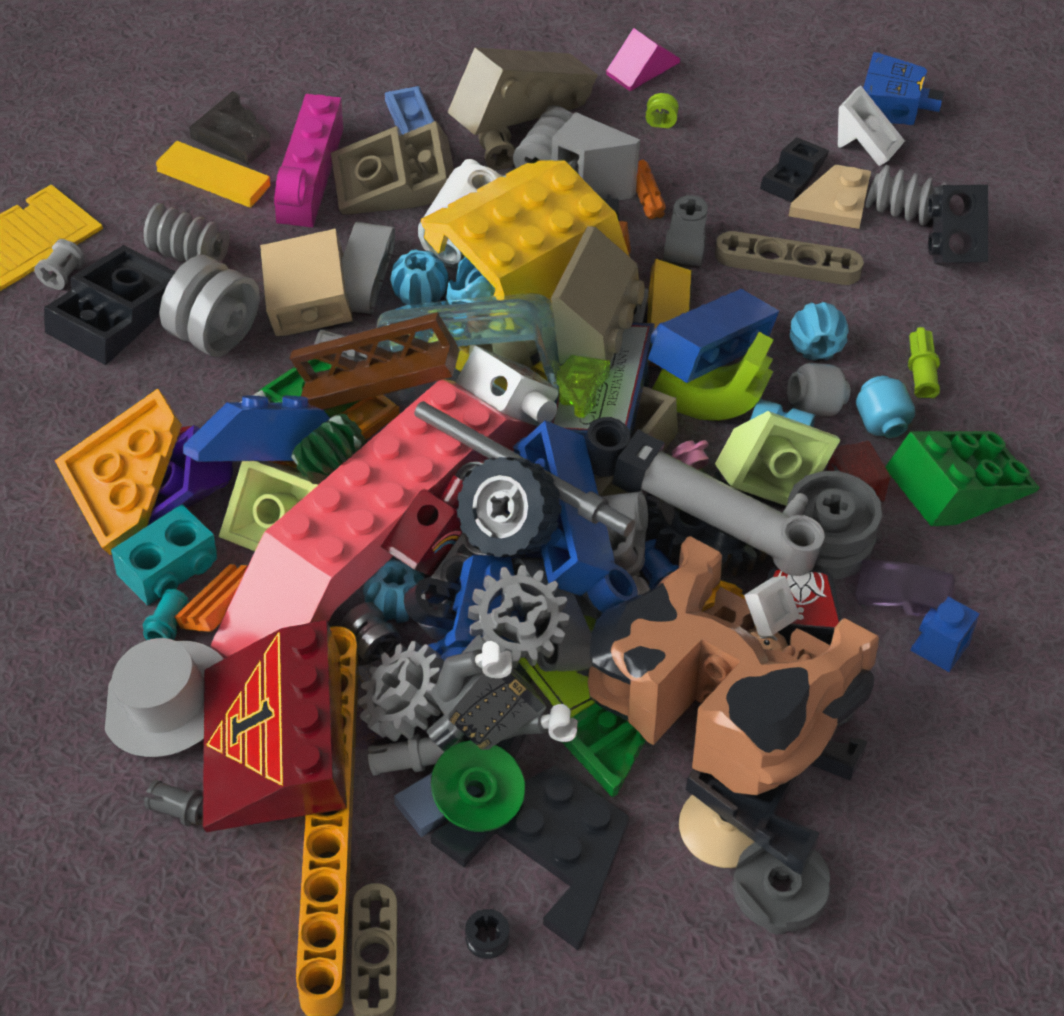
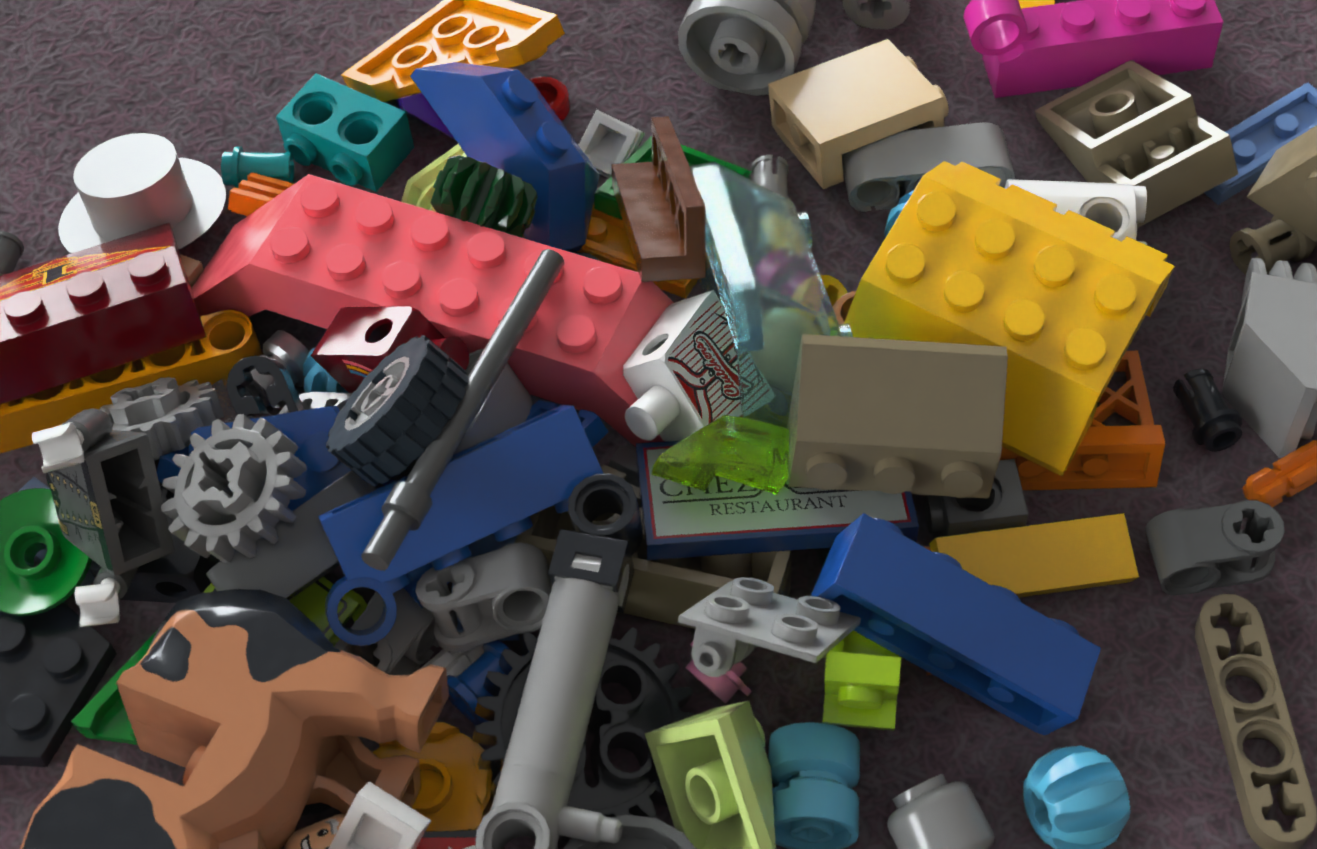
camera: 80 degrees right, 5 degrees up
(705, 395) = (751, 615): none -> light grey hinge

